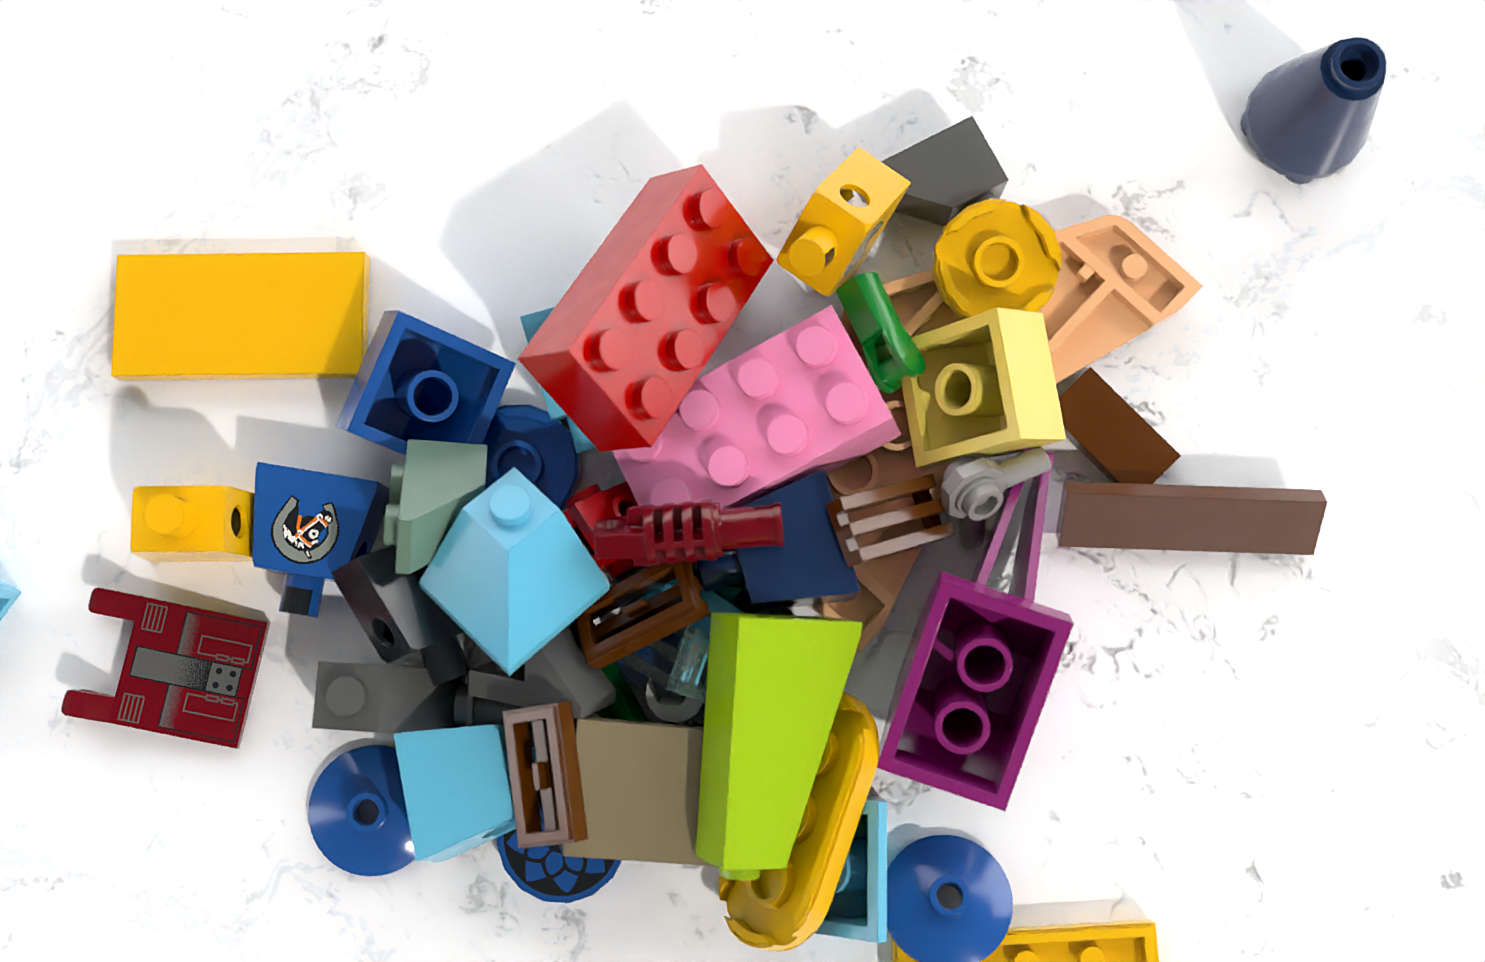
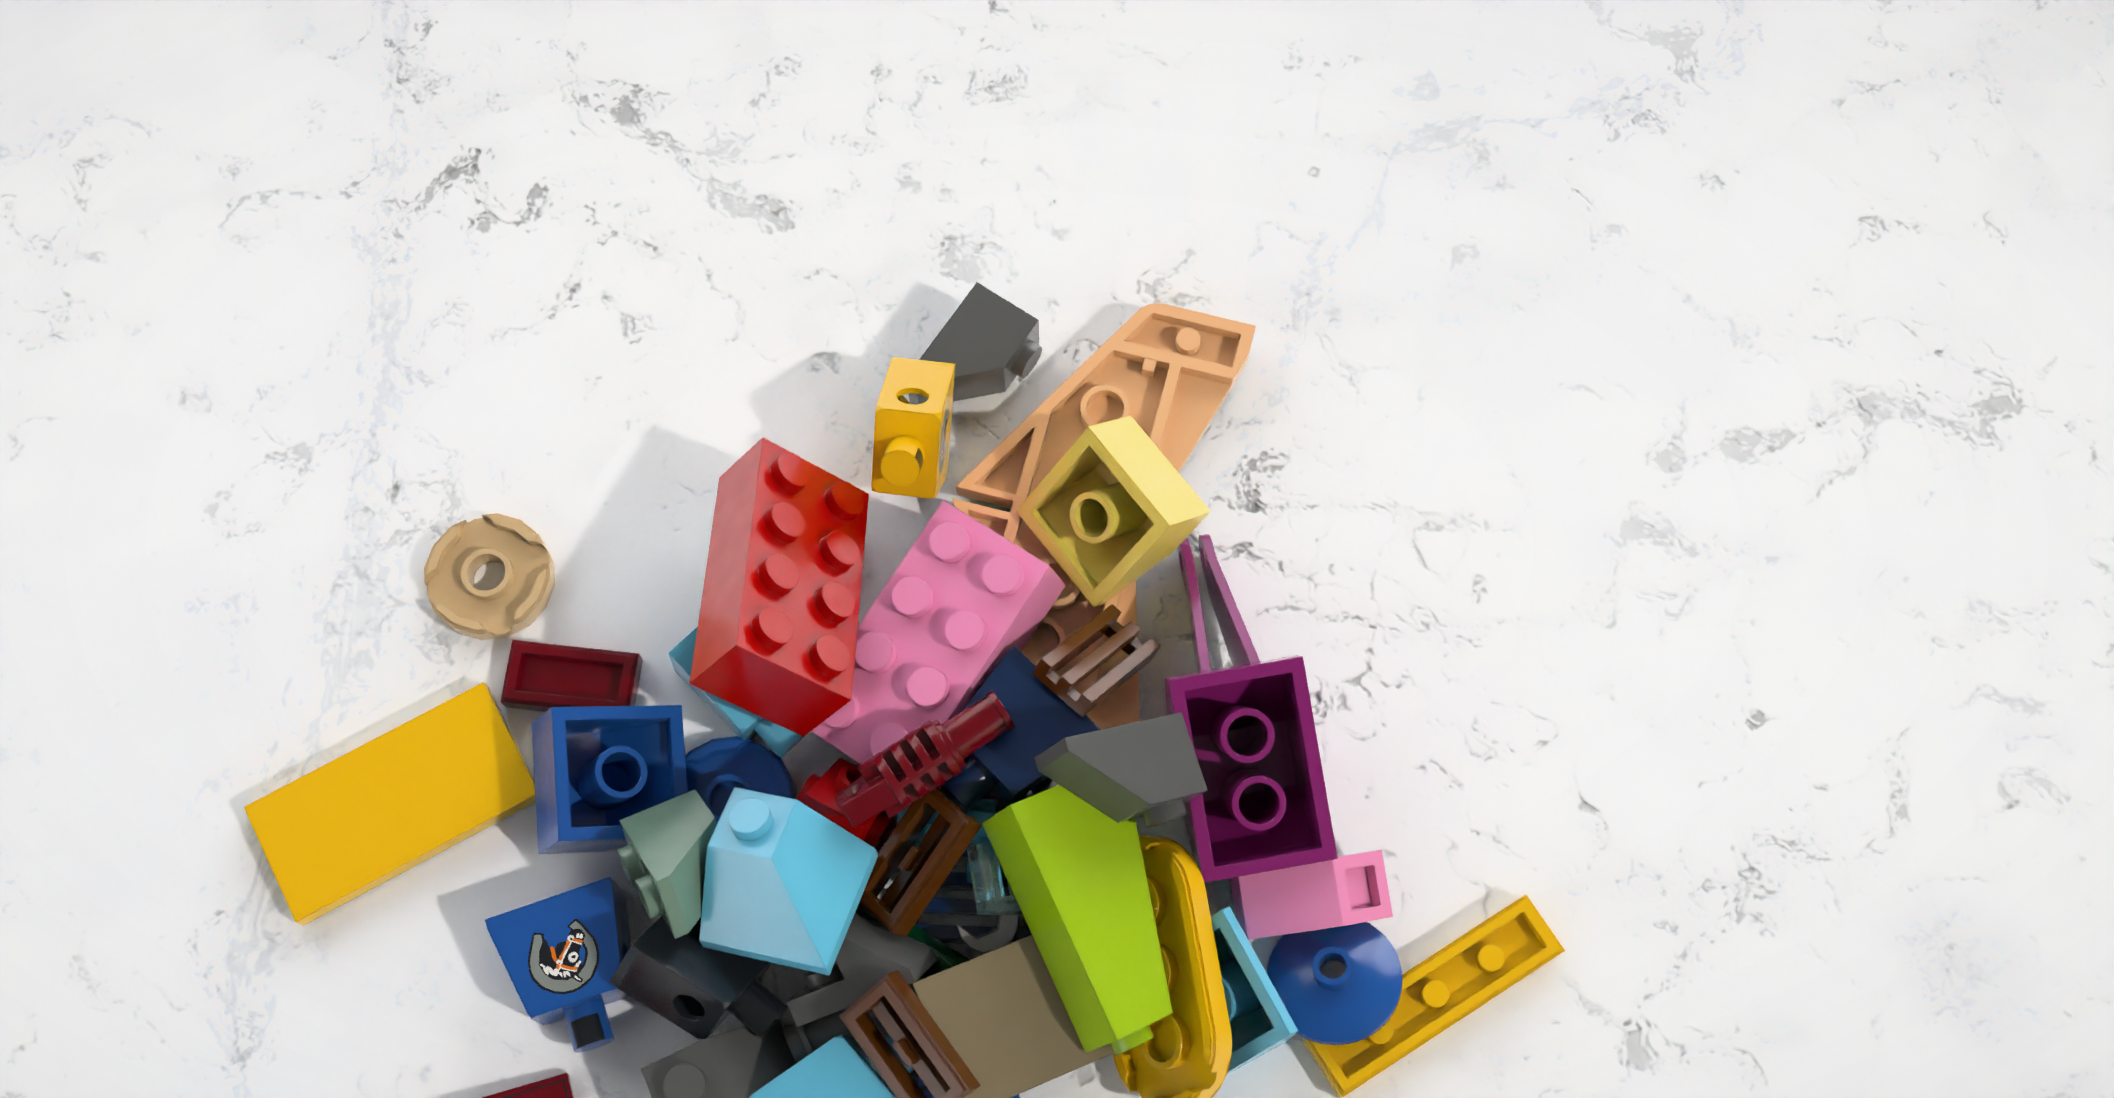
camera: 30 degrees left, 10 degrees down
(191, 523) = (454, 1011): yellow torso -> none
(423, 194) = (514, 601): none -> tan tile
(439, 288) = (569, 676): none -> dark red tile
(864, 642) = (1129, 769): none -> dark grey slope
(879, 325) = (992, 501): green bar -> none
(967, 829) = (1313, 896): none -> bright pink slope
(975, 489) = (1156, 594): light grey piece -> none
(996, 259) = (1062, 389): yellow tile -> none
(1113, 432) = (1252, 492): reddish brown tile -> none
(1190, 518) = (1355, 528): reddish brown tile -> none
(1316, 109) = (1267, 133): dark blue cone -> none

